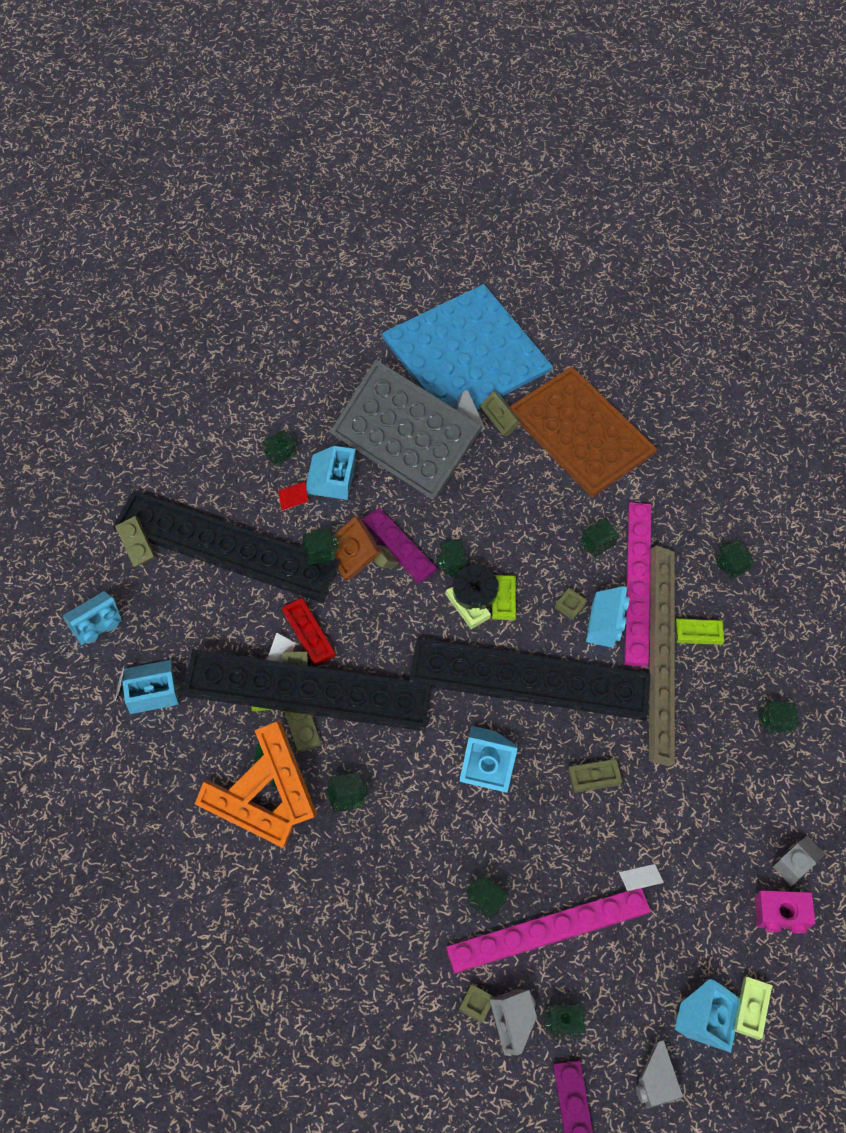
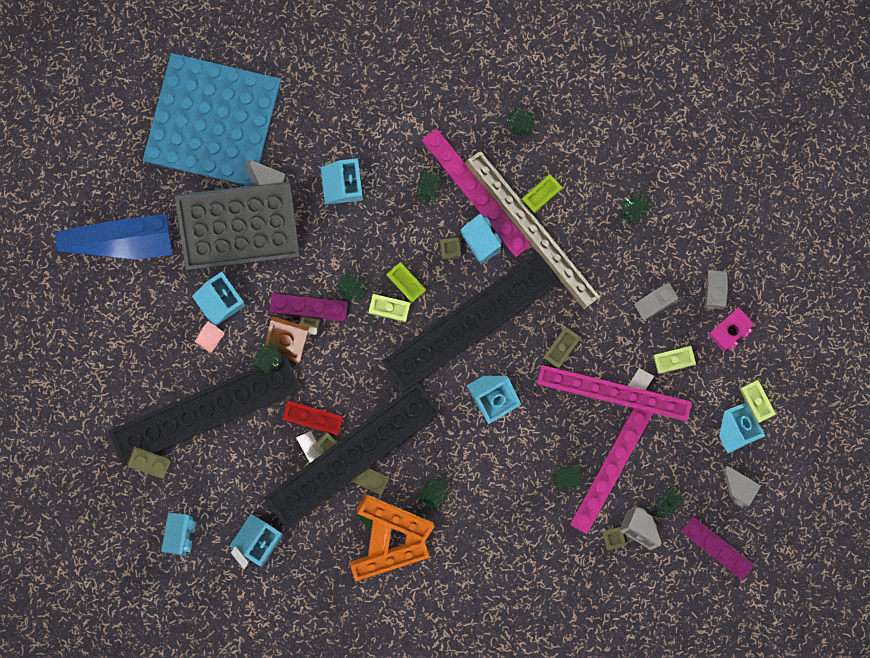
camera: 40 degrees left, 20 degrees up
(280, 448) = (167, 311): clear green brick -> none
(306, 370) = (123, 238): none -> blue wedge
(475, 599) = (378, 286): black plate -> none
(500, 413) = (281, 150): olive plate -> none
(528, 475) = (341, 182): none -> medium azure slope
(582, 431) = (344, 112): dark orange plate -> none
(611, 864) = (614, 393): none -> dark pink plate
(698, 887) = (674, 360): none -> yellowish green plate
(729, 816) = (656, 301): none -> light grey slope

